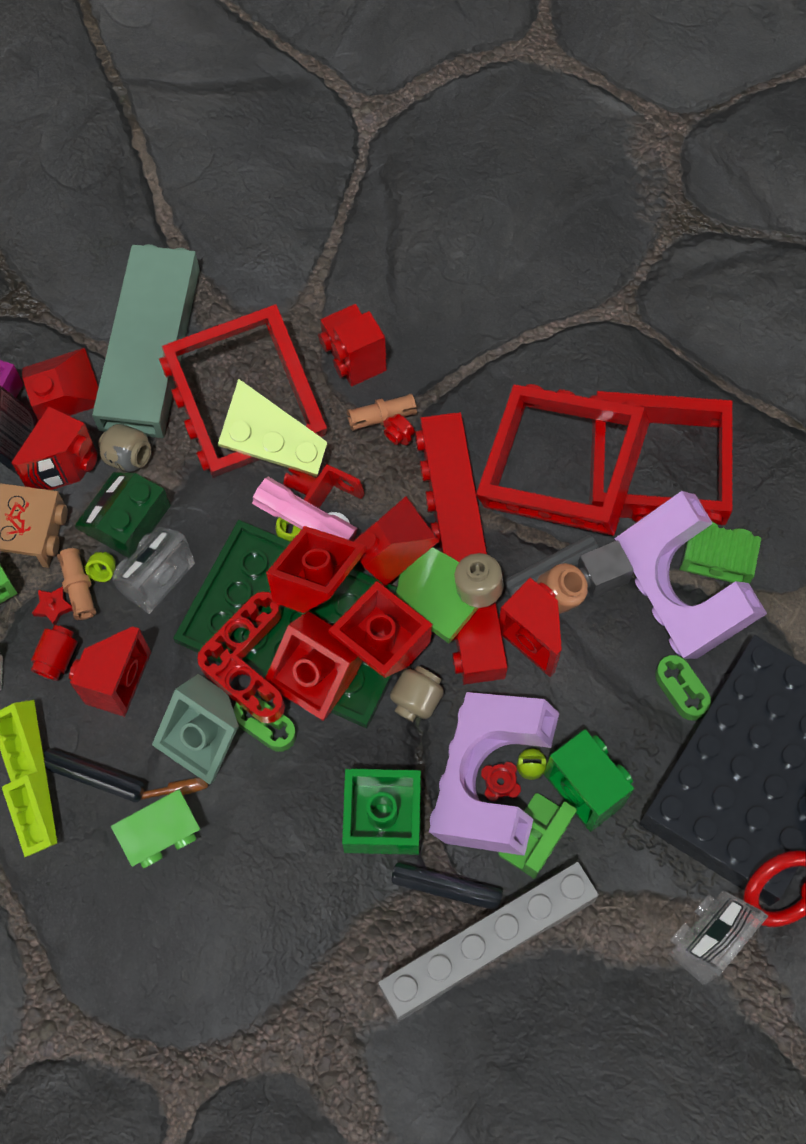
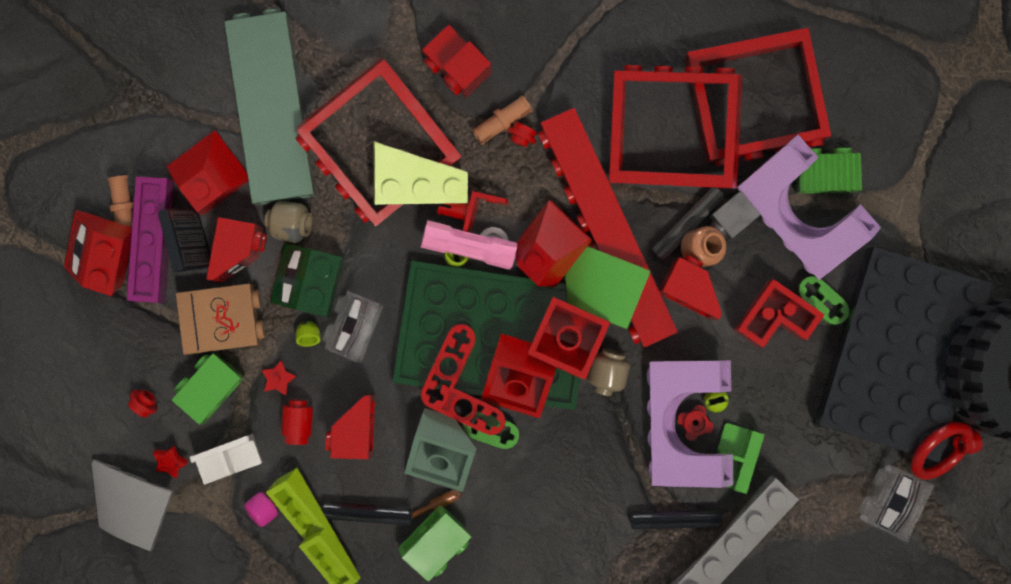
camera: 15 degrees left, 20 degrees up
(76, 584) = (293, 356): nougat pin -> none
(312, 568) = (497, 300): red slope -> none
(381, 811) = (610, 480): green brick -> none
(479, 580) = (642, 289): dark tan head -> none
(589, 779) = (769, 409): green brick -> none
(628, 675) = (774, 308): none -> red brick

